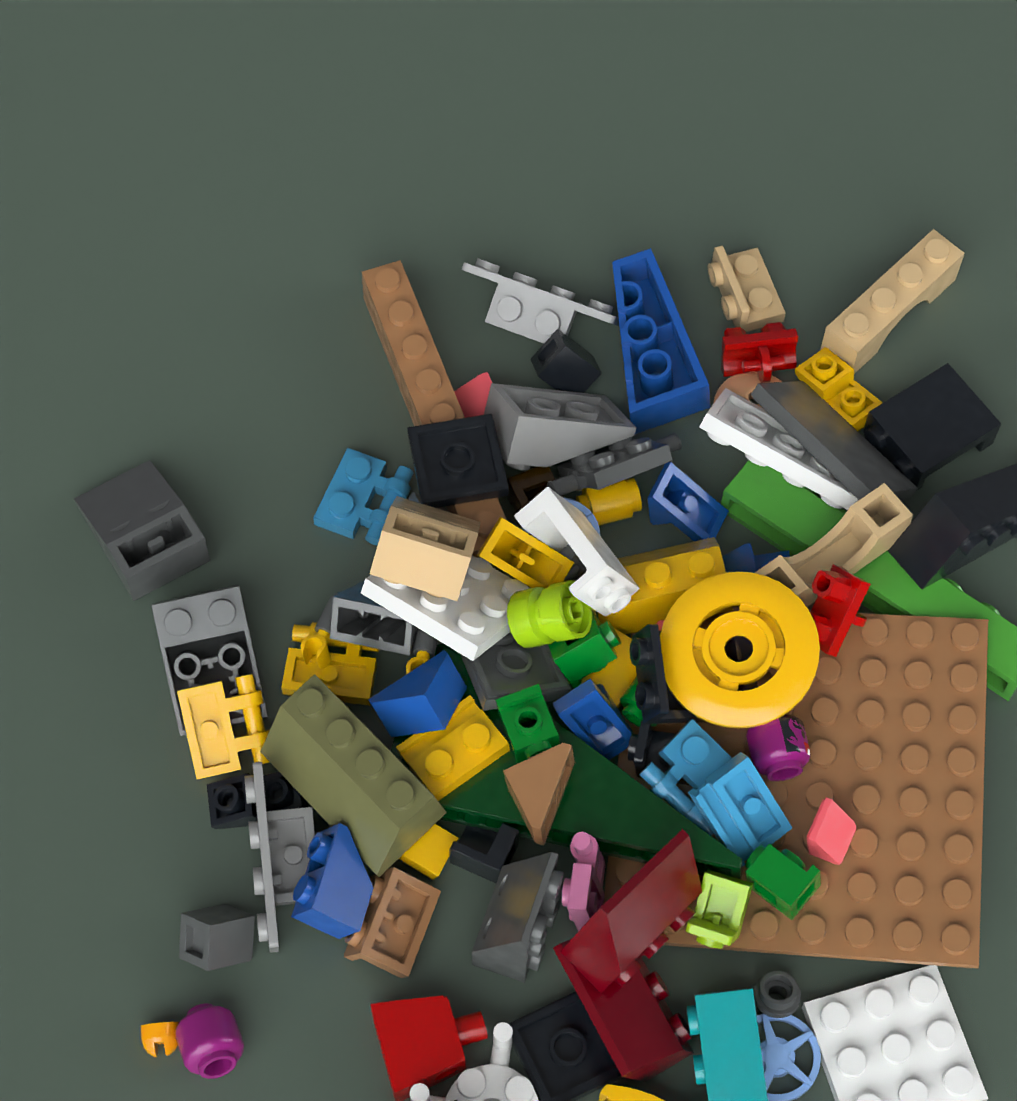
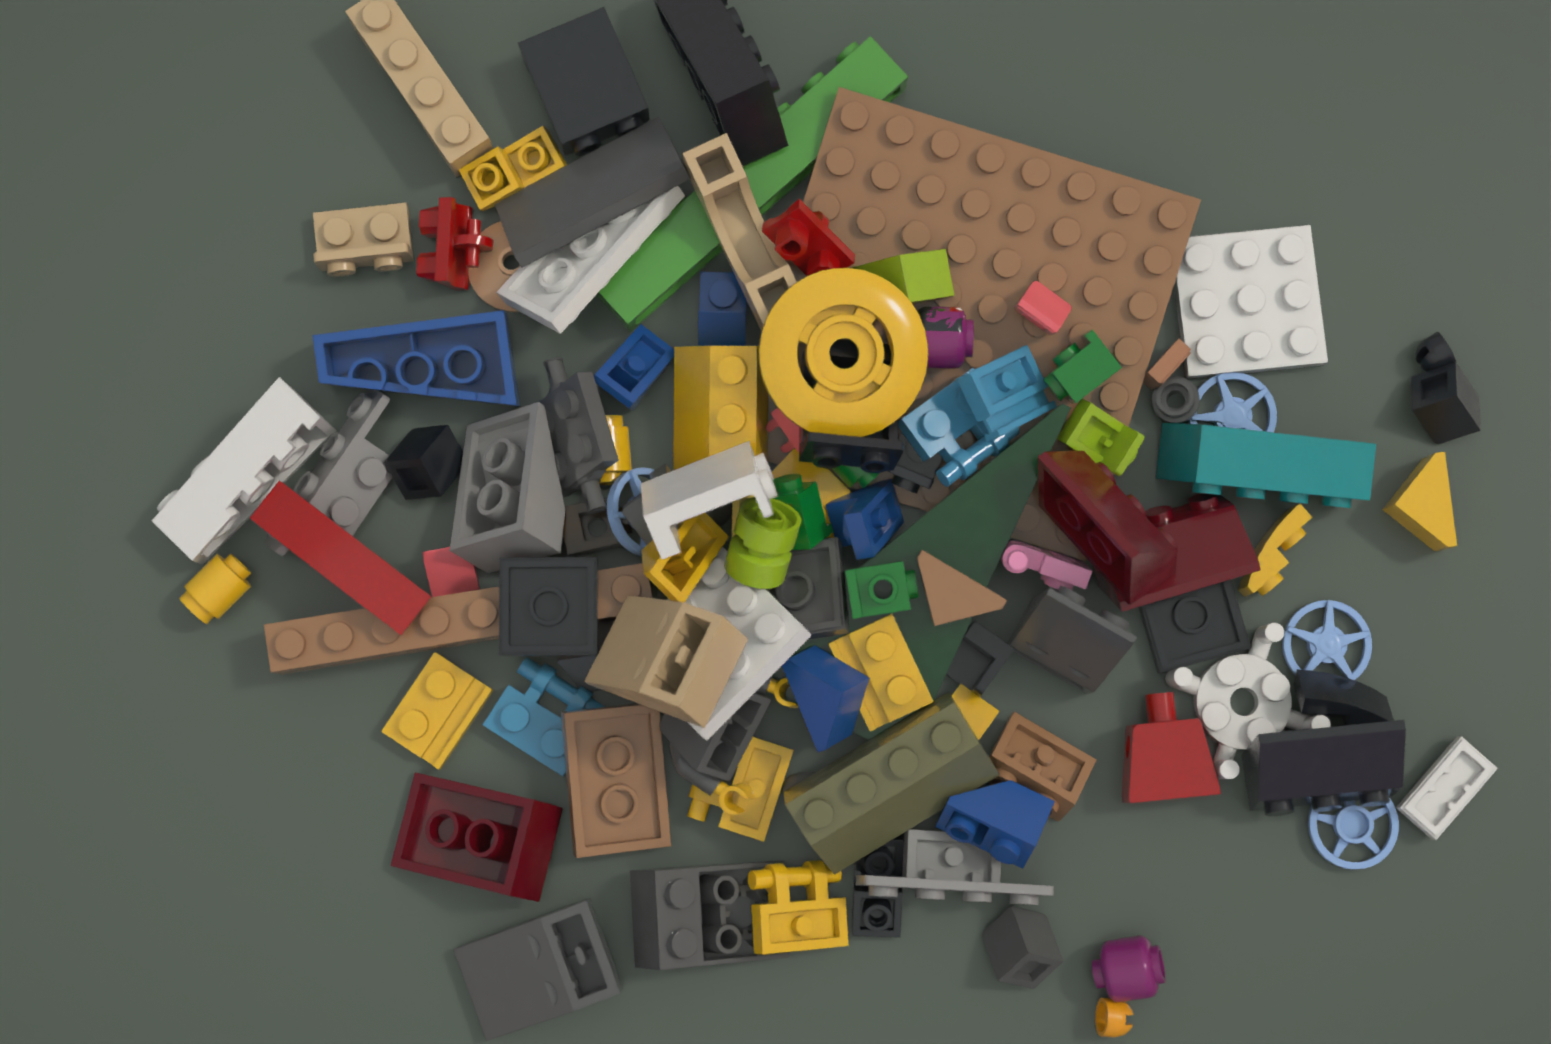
camera: 85 degrees left, 20 degrees up
(248, 461) = (477, 837): none -> dark red slope
(313, 554) = (615, 779): none -> medium nougat plate
(353, 415) = (437, 710): none -> yellow plate
(425, 232) = (216, 587): none -> yellow brick
(466, 303) = (340, 557): none -> red slope
(529, 232) = (242, 471): none -> white wedge
(810, 975) = (1166, 364): none -> nougat tile
(829, 713) = (918, 275): none -> lime slope

